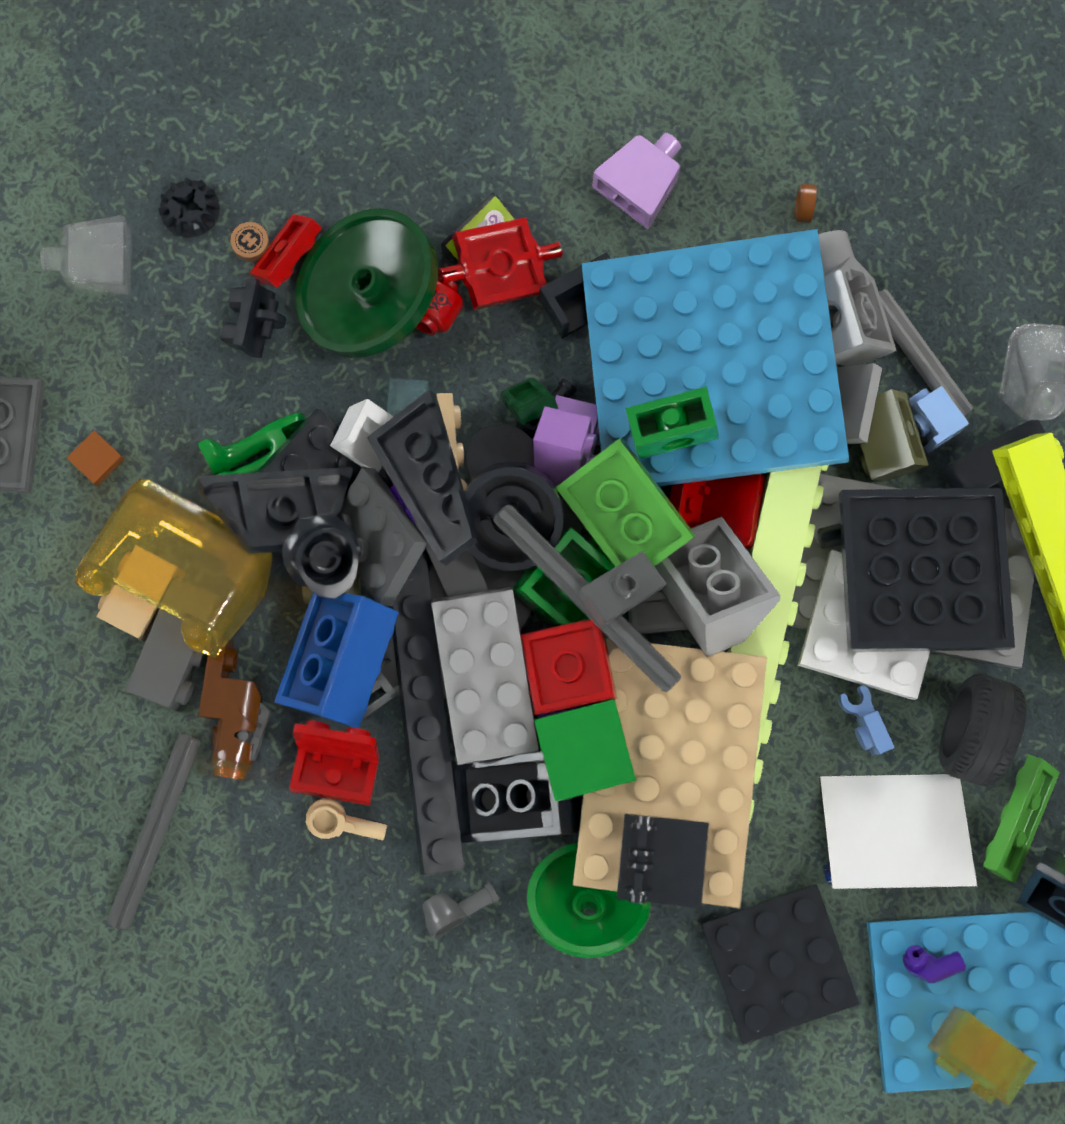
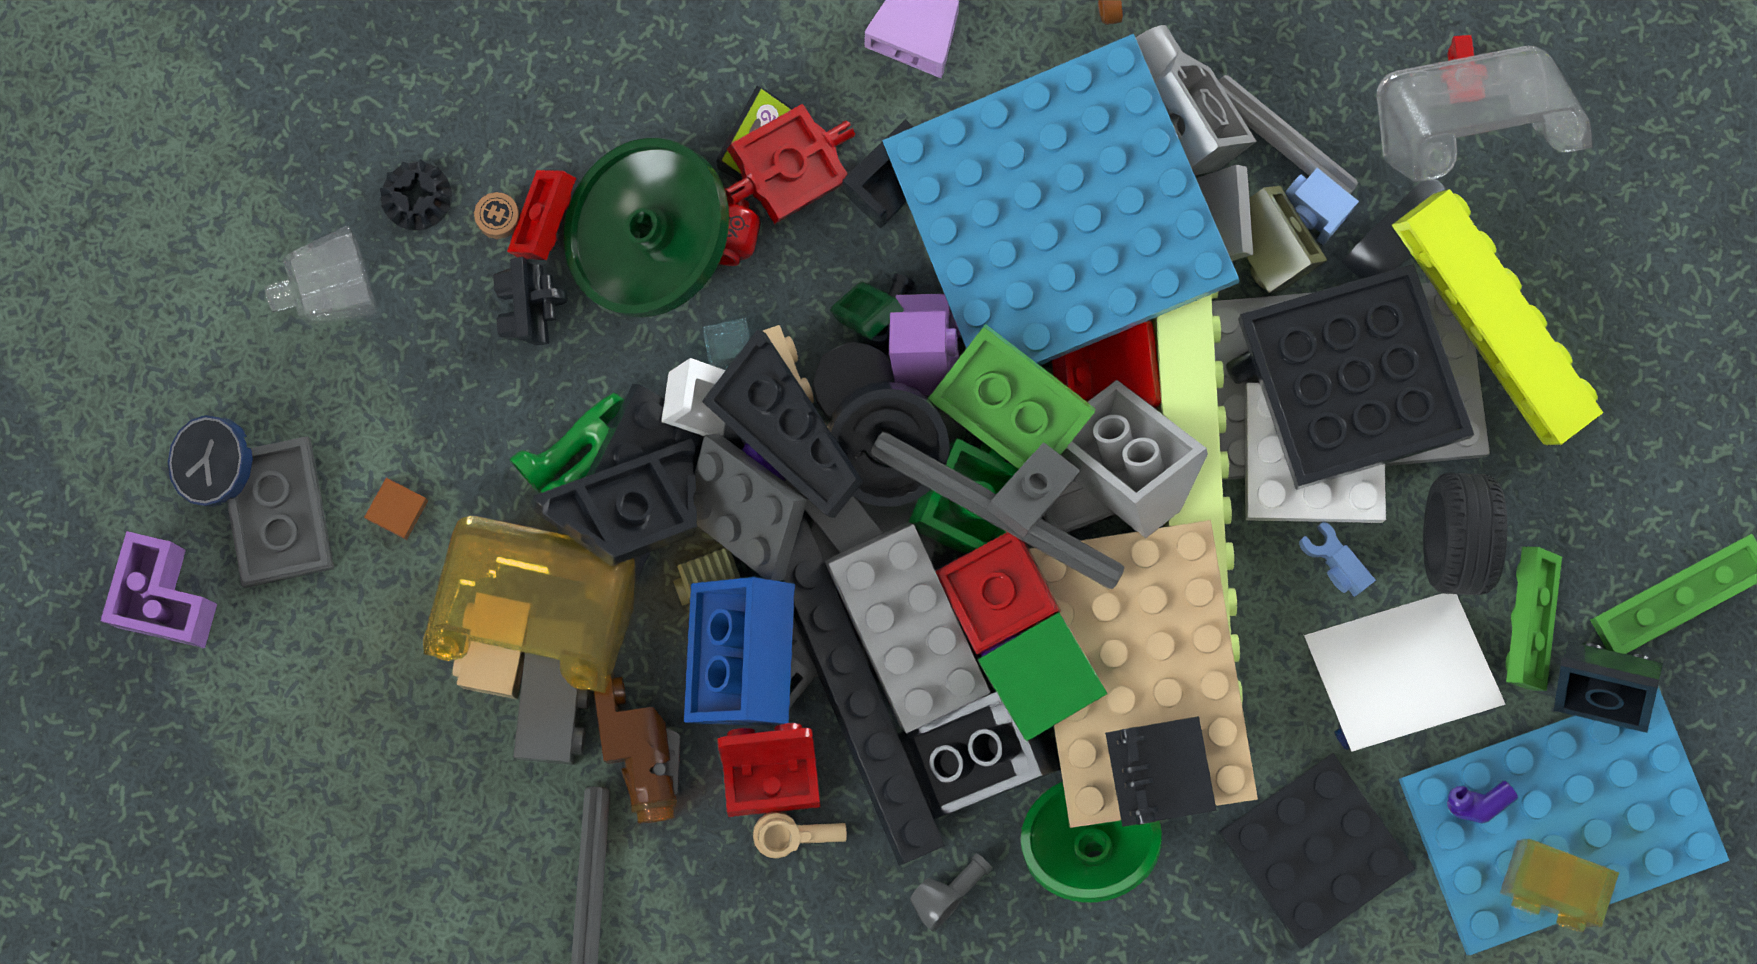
camera: 15 degrees left, 0 degrees up
(322, 555) = (693, 545): black hat -> none
(672, 423) = (1037, 293): green brick -> none

